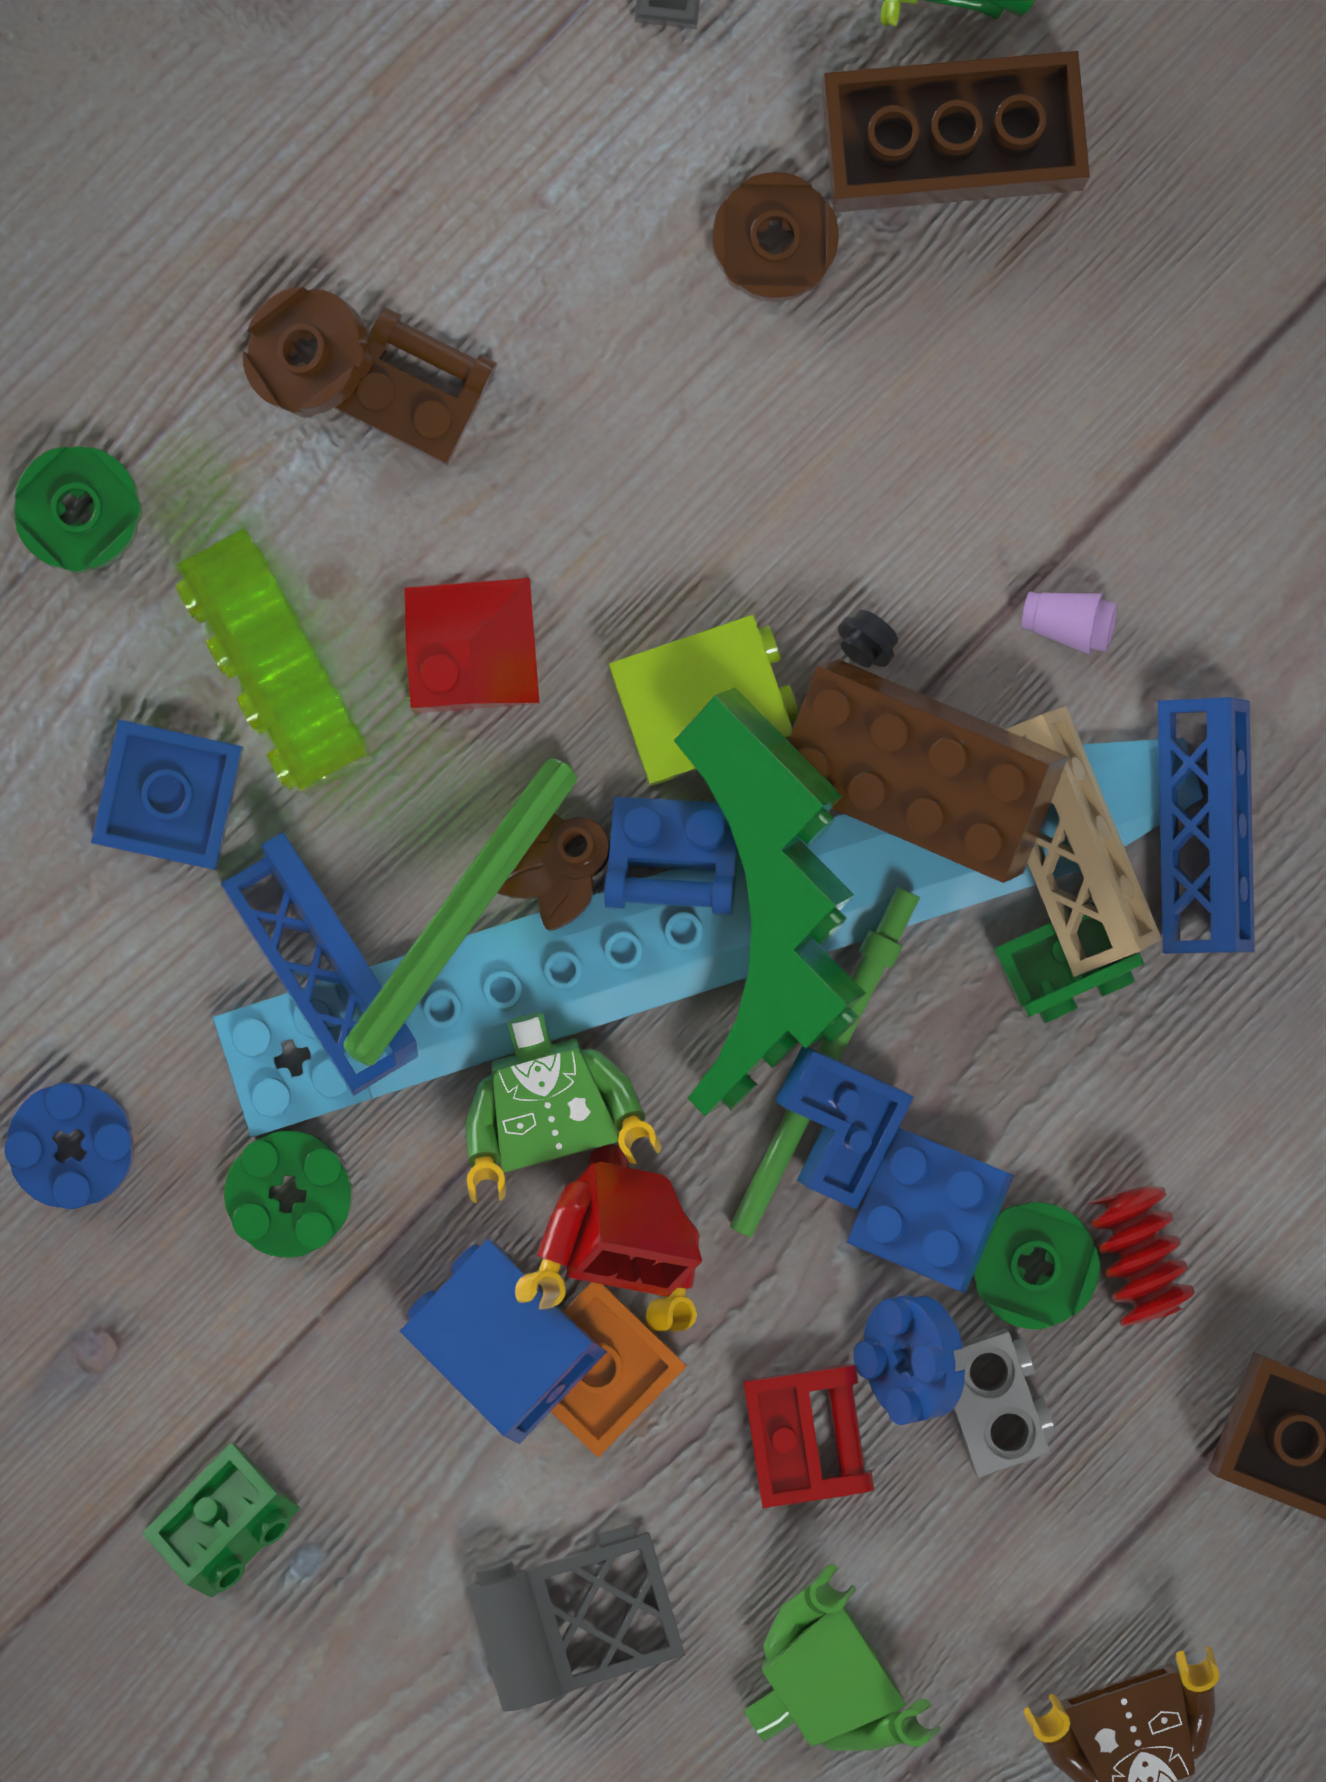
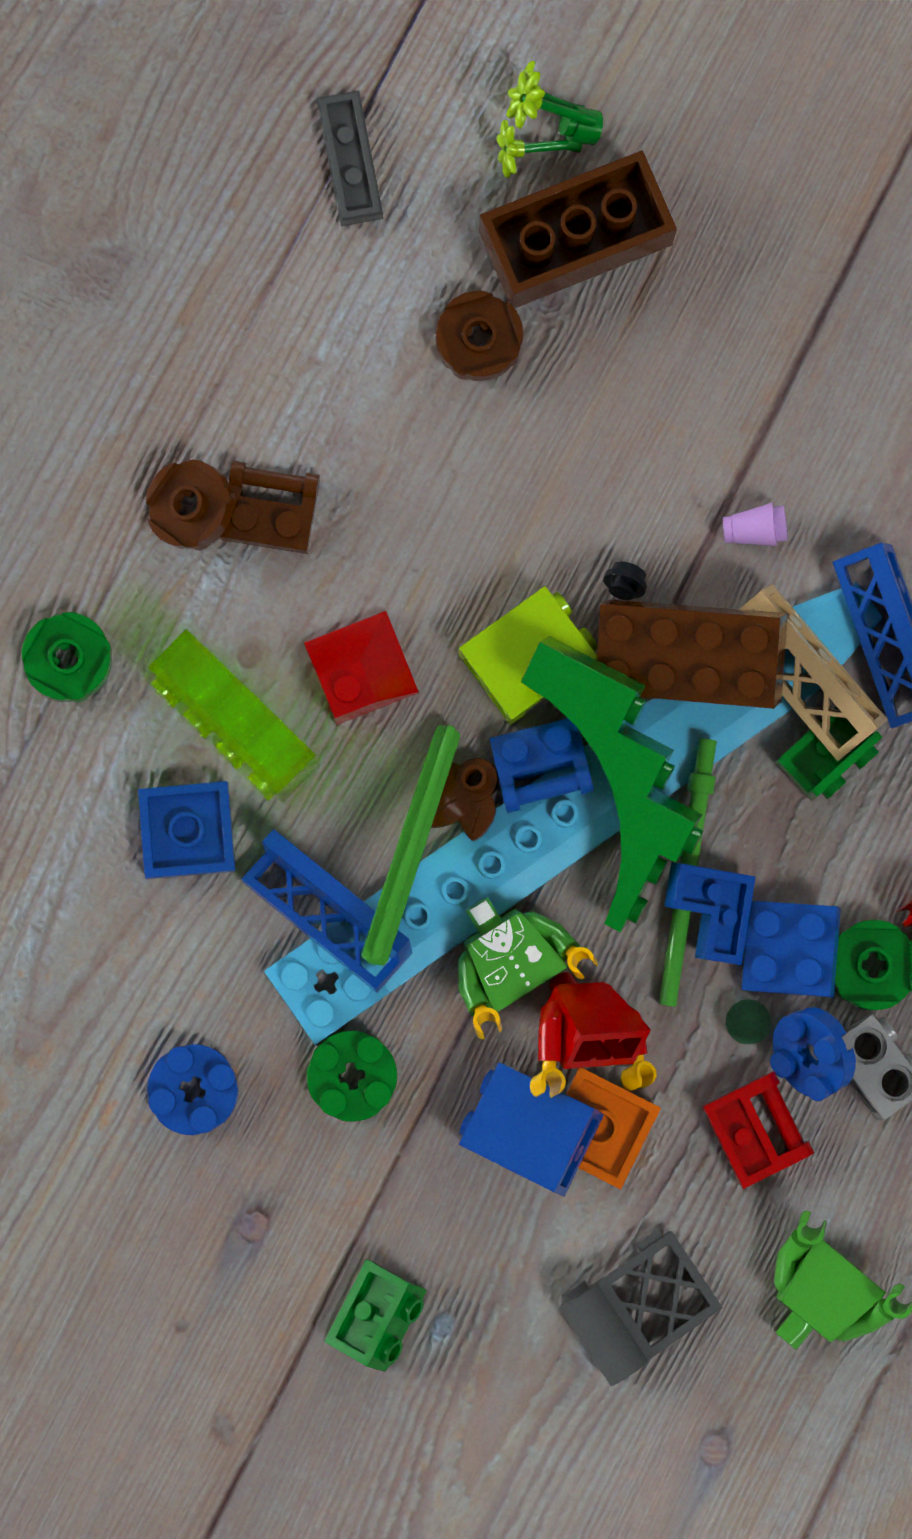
camera: 20 degrees left, 5 degrees down
(841, 1288) = (748, 1022): none -> clear green plate

